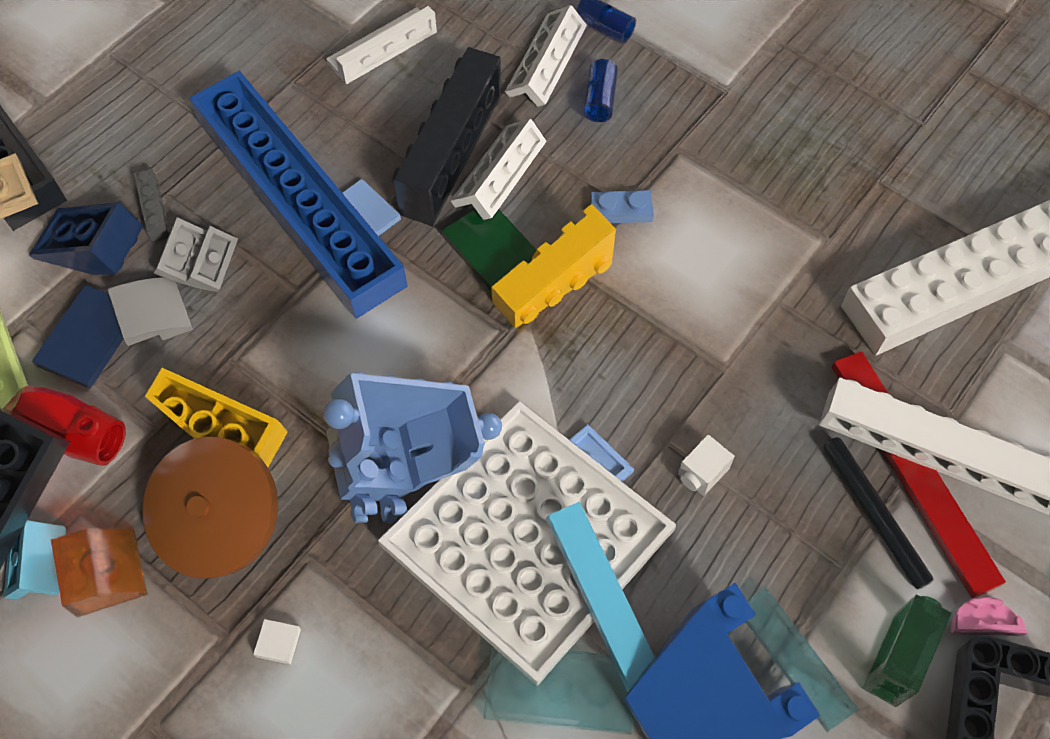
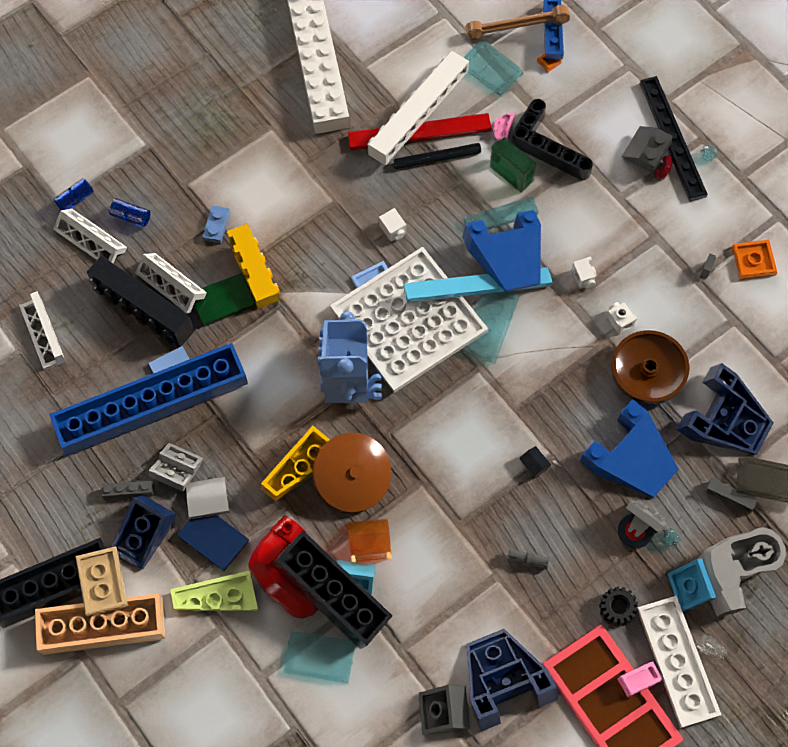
camera: 75 degrees left, 5 degrees up
(277, 641) = (432, 454): white tile -> none

